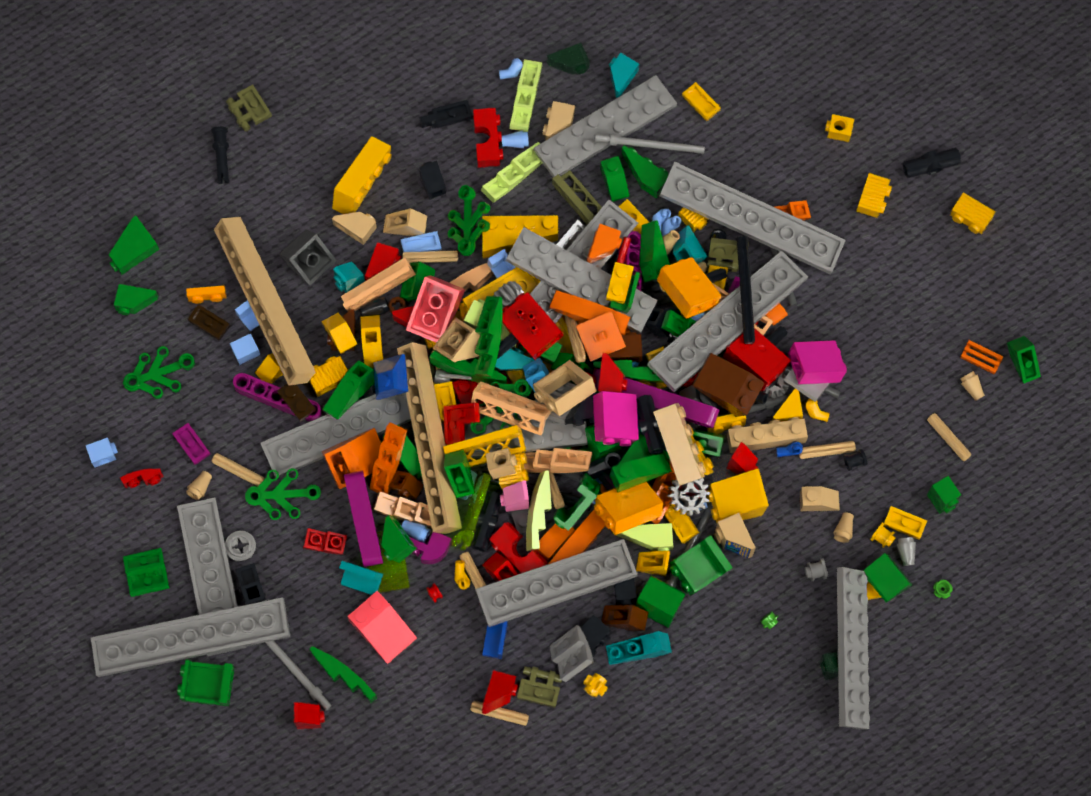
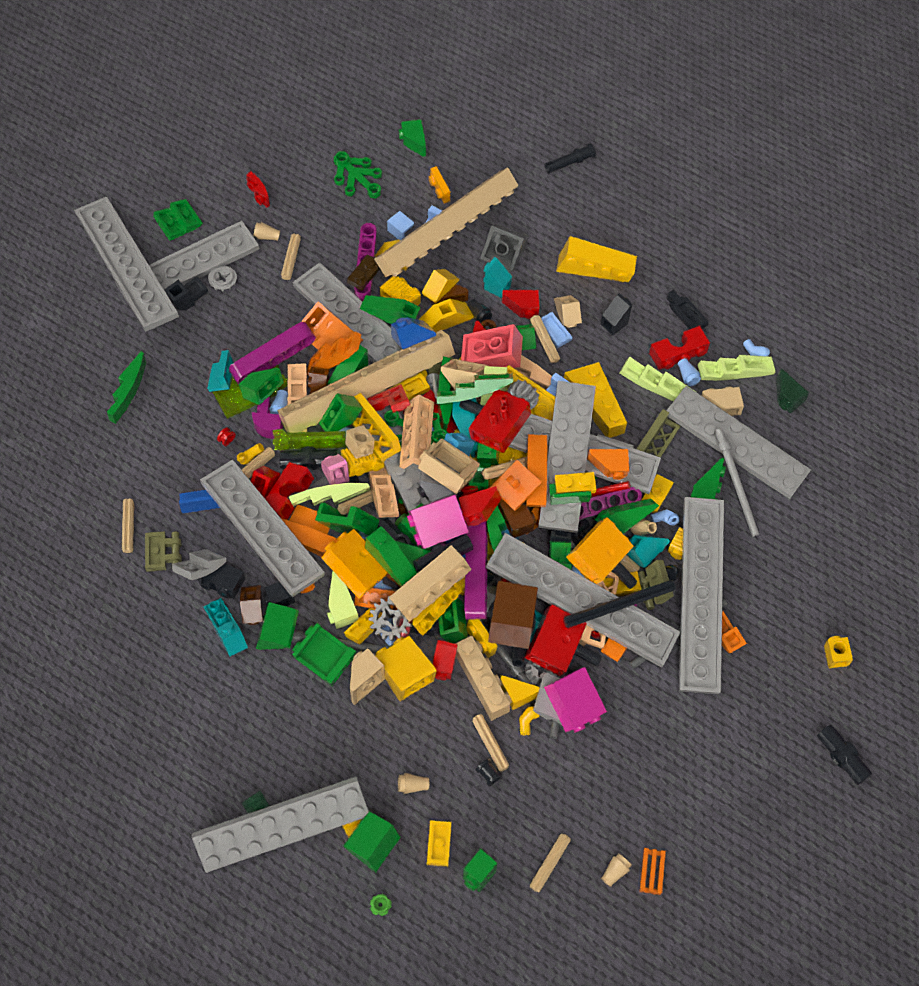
camera: 70 degrees right, 10 degrees down
(101, 452) = (270, 155): light blue brick -> none
(132, 247) = (460, 122): green slope -> none
(191, 443) = (301, 215): magenta plate -> none
(206, 683) = (91, 289): green panel -> none
(208, 322) = (415, 195): dark brown plate -> none
(253, 104) = (625, 169): olive plate -> none
(279, 494) = (278, 292): green plant -> none
(308, 716) = (78, 368): red slope -> none
(315, 692) = (106, 372): light grey bar -> none
(324, 541) = (247, 337): red slope -> none
(356, 225) = (549, 274): tan slope -> none
(378, 285) = (499, 304): light nougat fence -> none
(381, 627) = (181, 404): coral slope -> none
(467, 244) = (589, 353): green plant -> none
(499, 691) = (144, 514): red slope -> none
(595, 685) = (176, 597): yellow gear -> none
(614, 178) = (688, 464): green slope -> none
(622, 72) = (796, 439): teal slope -> none
(653, 562) = (315, 613): yellow slope -> none
(671, 224) = (666, 528): light blue arm -> none
(701, 101) = (803, 517): yellow plate -> none
(769, 620) = (291, 739): bright green plate -> none
(792, 449) = (477, 707): blue arm -> none
(816, 570) = (357, 767): light grey brick -> none
(819, 499) = (433, 748): tan slope -> none
(873, 195) = (781, 706): yellow brick -> none
(883, 536) = (416, 824): yellow brick -> none
(906, 549) = (409, 854): light grey cone -> none
(972, 213) = (807, 812): yellow brick -> none
(1024, 358) = (667, 916): green slope -> none

